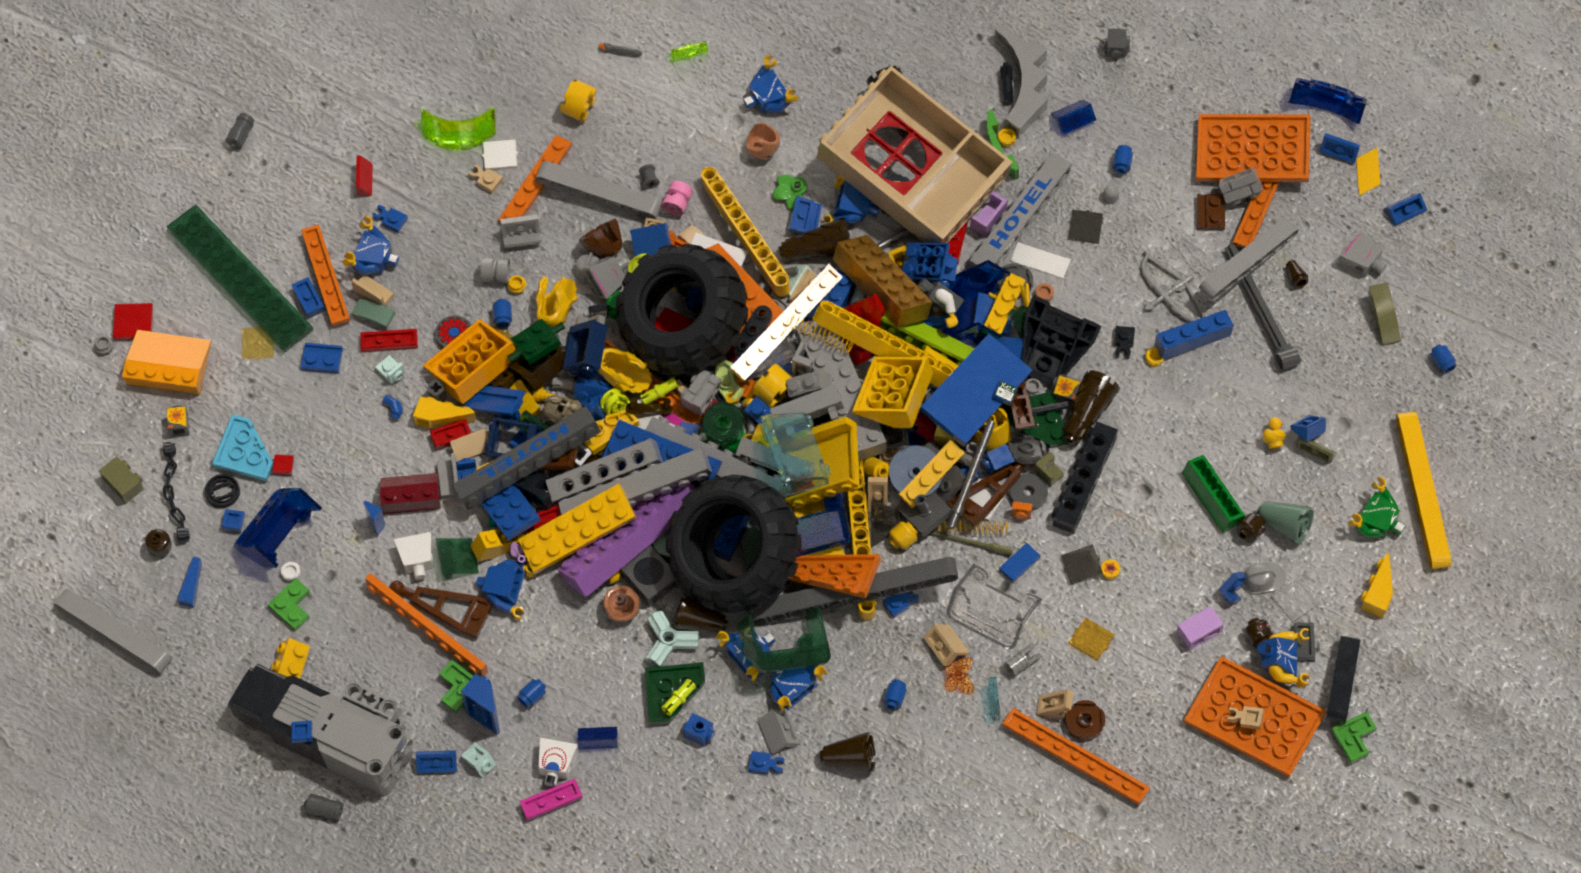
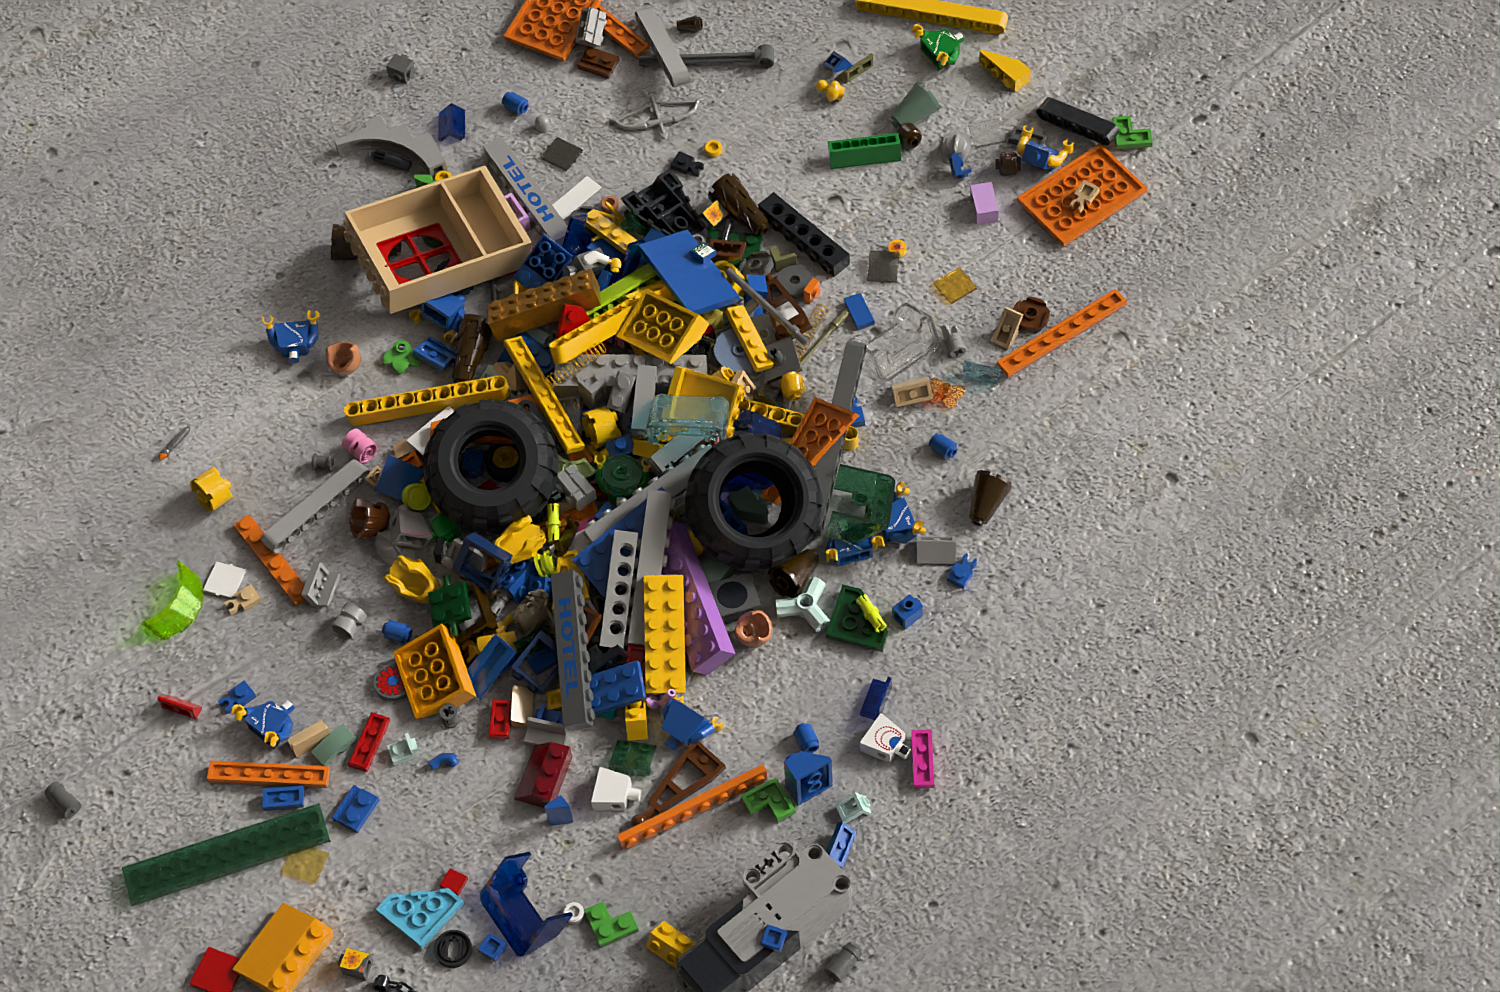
camera: 65 degrees left, 5 degrees down
(436, 414) = (473, 723): yellow slope -> none
(516, 284) = (372, 610): yellow plate -> none
(689, 50) = (210, 387): clear neon green pin -> none
(1193, 334) = (710, 110): blue brick -> none

